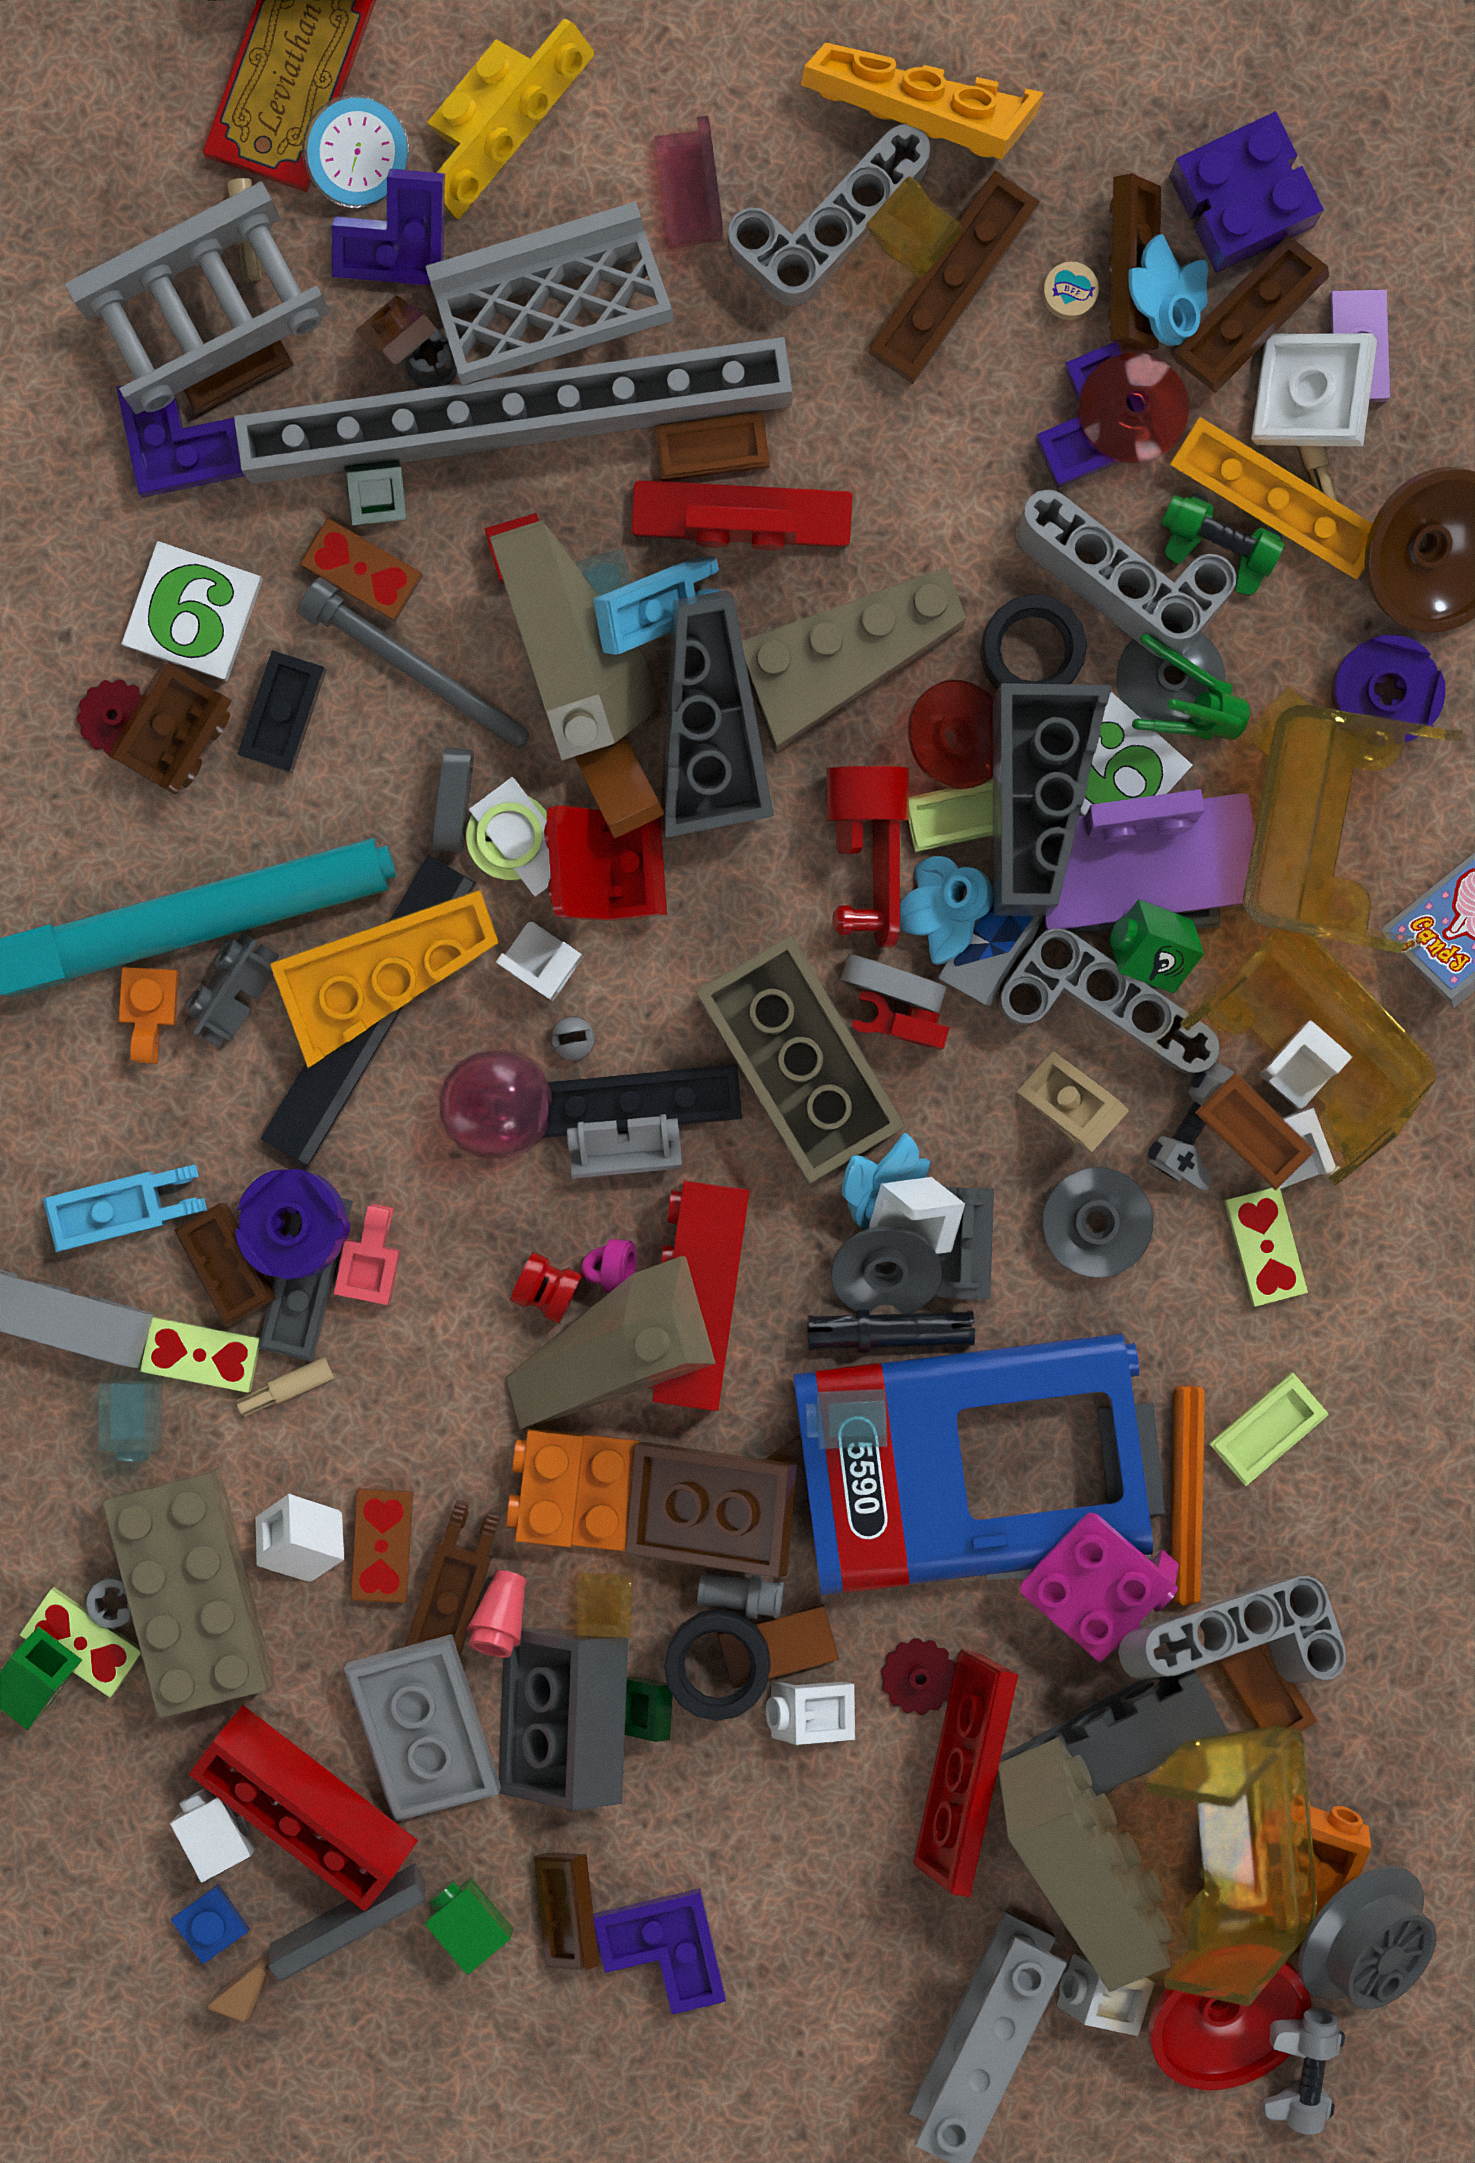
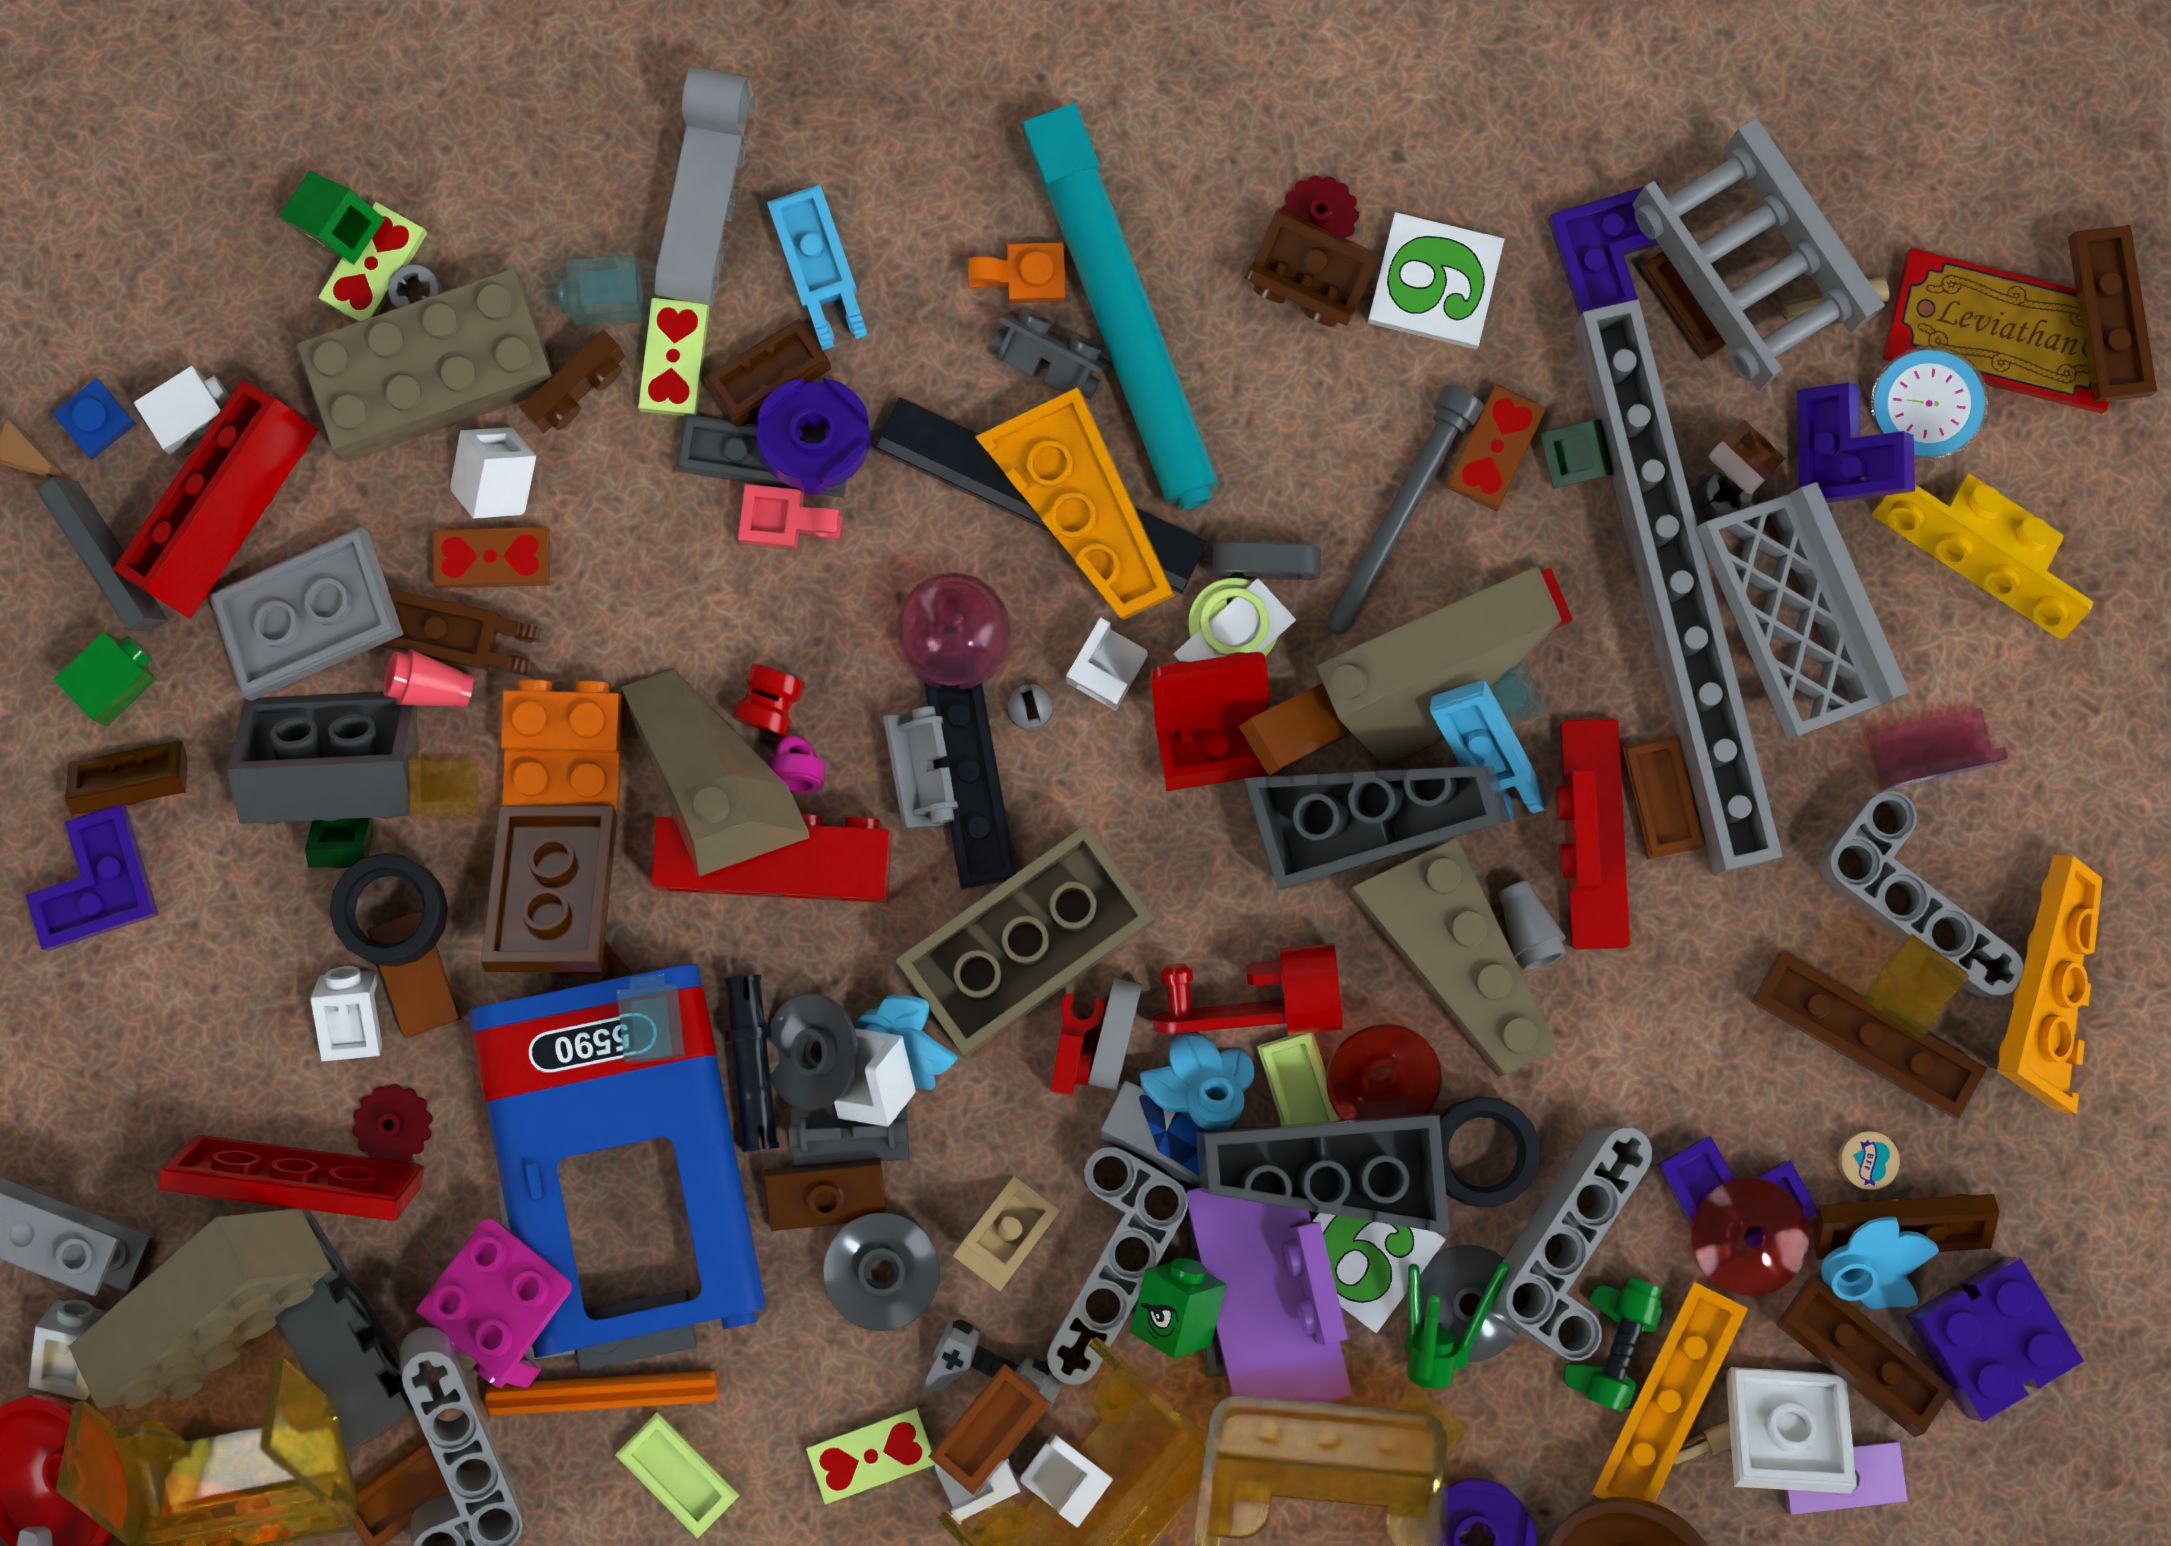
camera: 85 degrees right, 5 degrees down
(205, 1434) = (591, 367): none -> reddish brown plate
(282, 711) = (1341, 379): black plate -> none
(287, 1386) = (647, 447): tan pin -> none
(741, 1594) = (464, 930): light grey pin -> none
(826, 583) = (1530, 928): none -> light grey cone
(1019, 1270) = (824, 1193): none -> reddish brown plate

